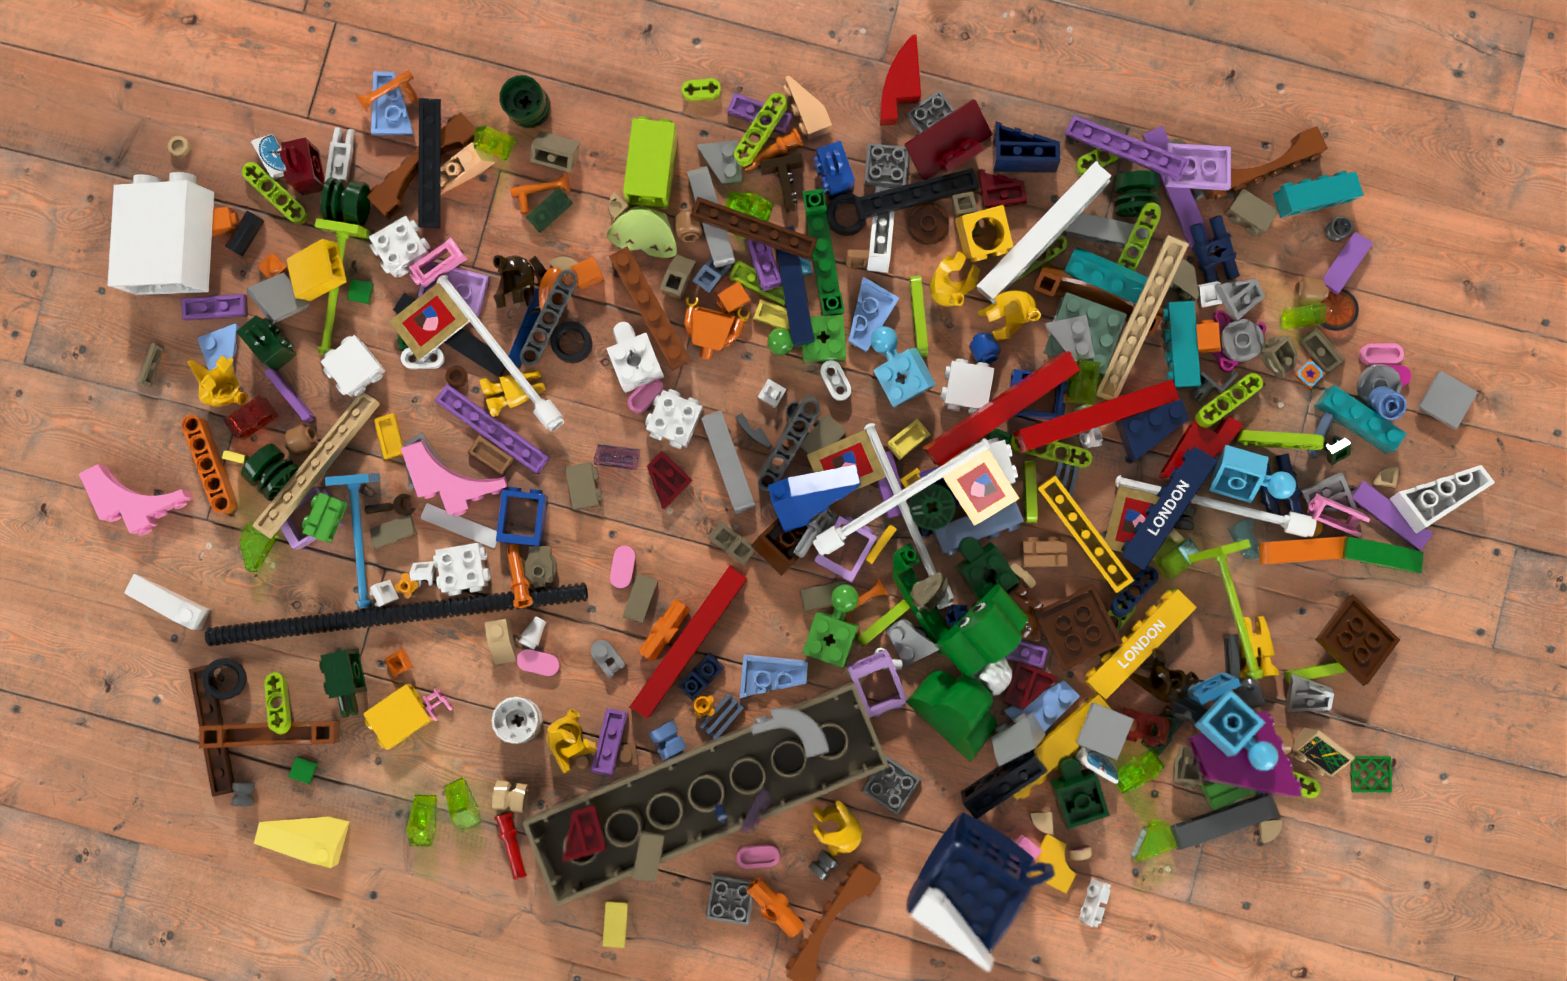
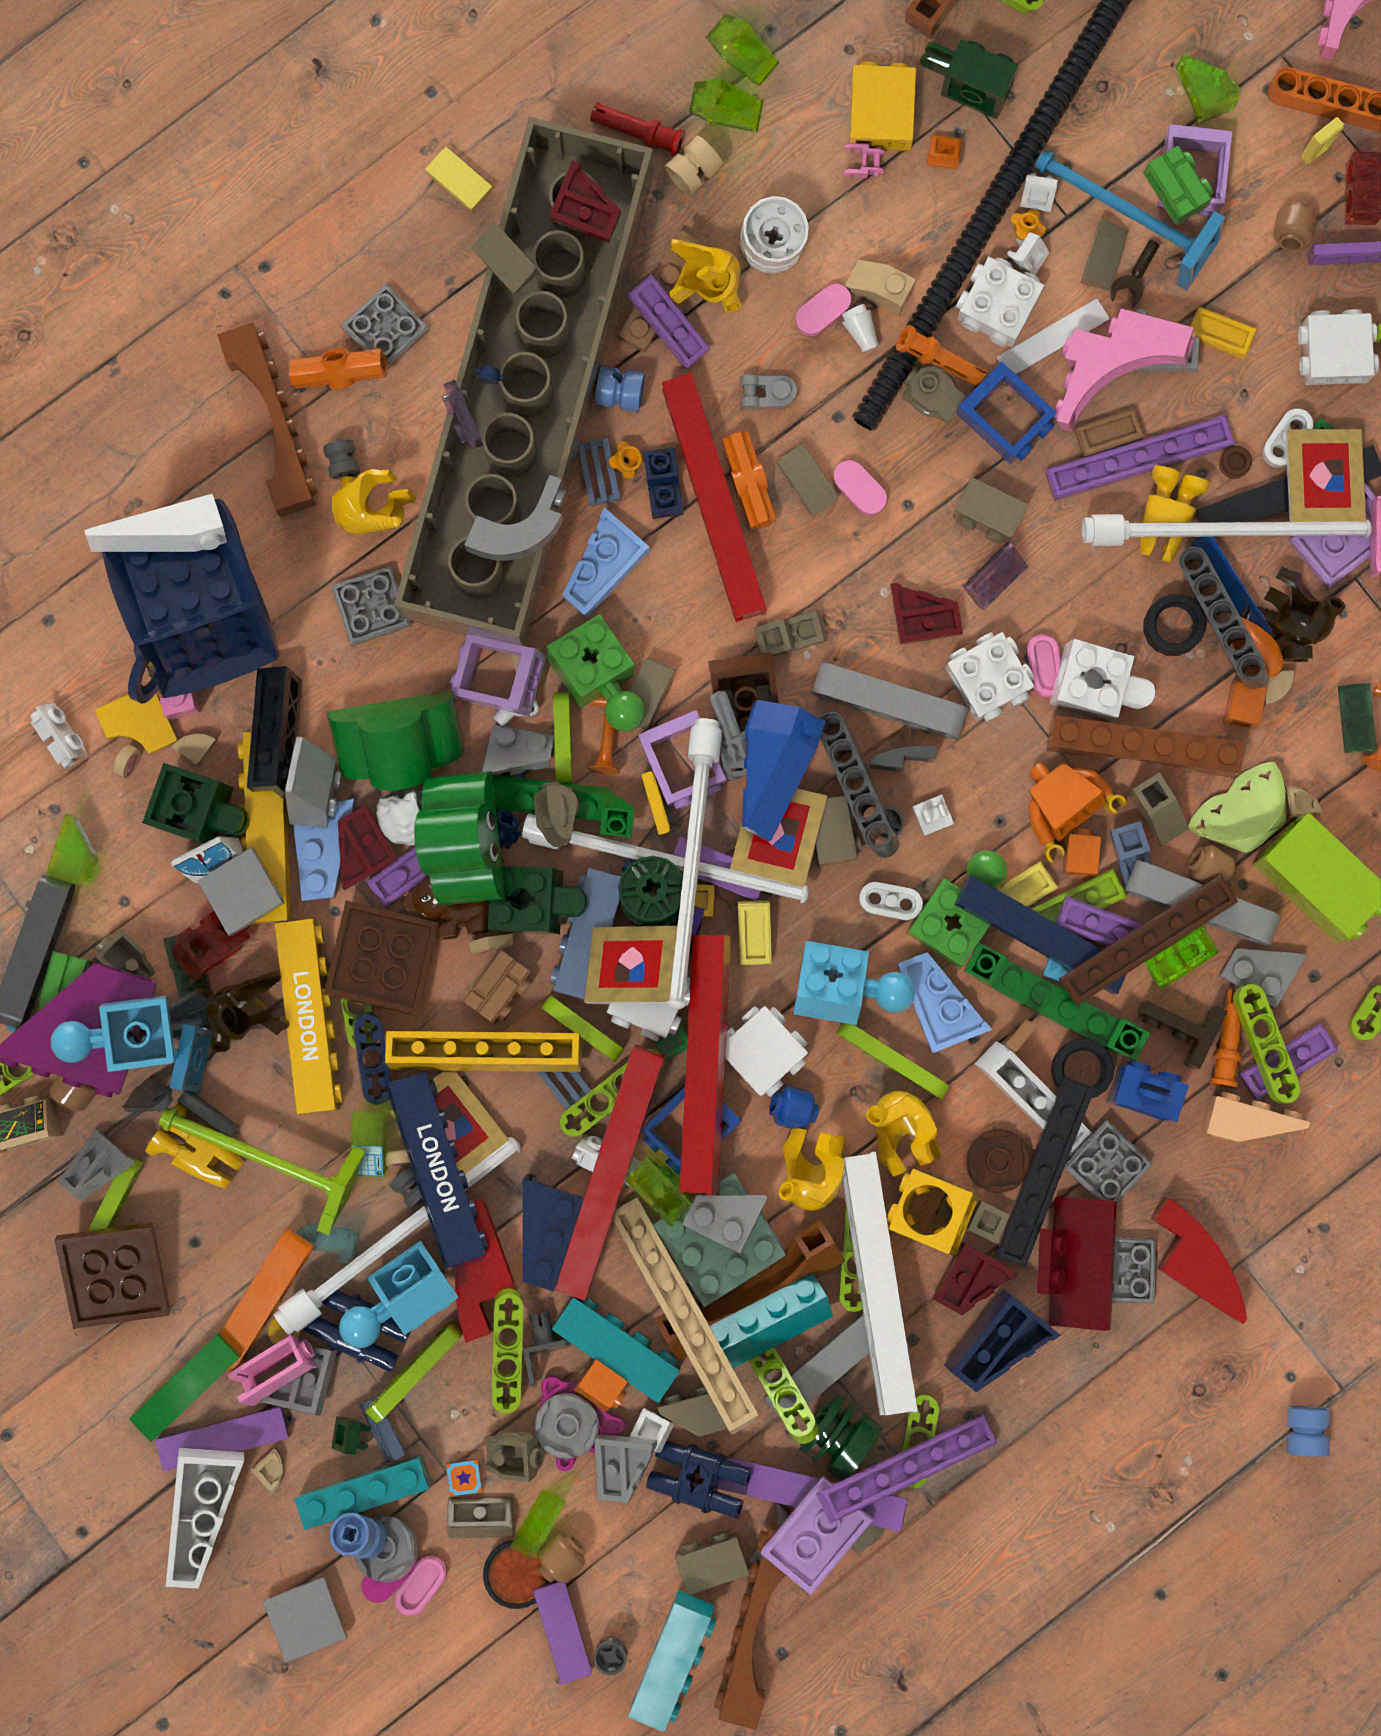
camera: 125 degrees right, 0 degrees up
(268, 470) = (1280, 164): dark green wheel -> none
(315, 465) = (1249, 221): tan plate -> none
(758, 856) = (409, 394): bright pink tile -> none
(1139, 771) = (164, 900): clear neon green slope -> none

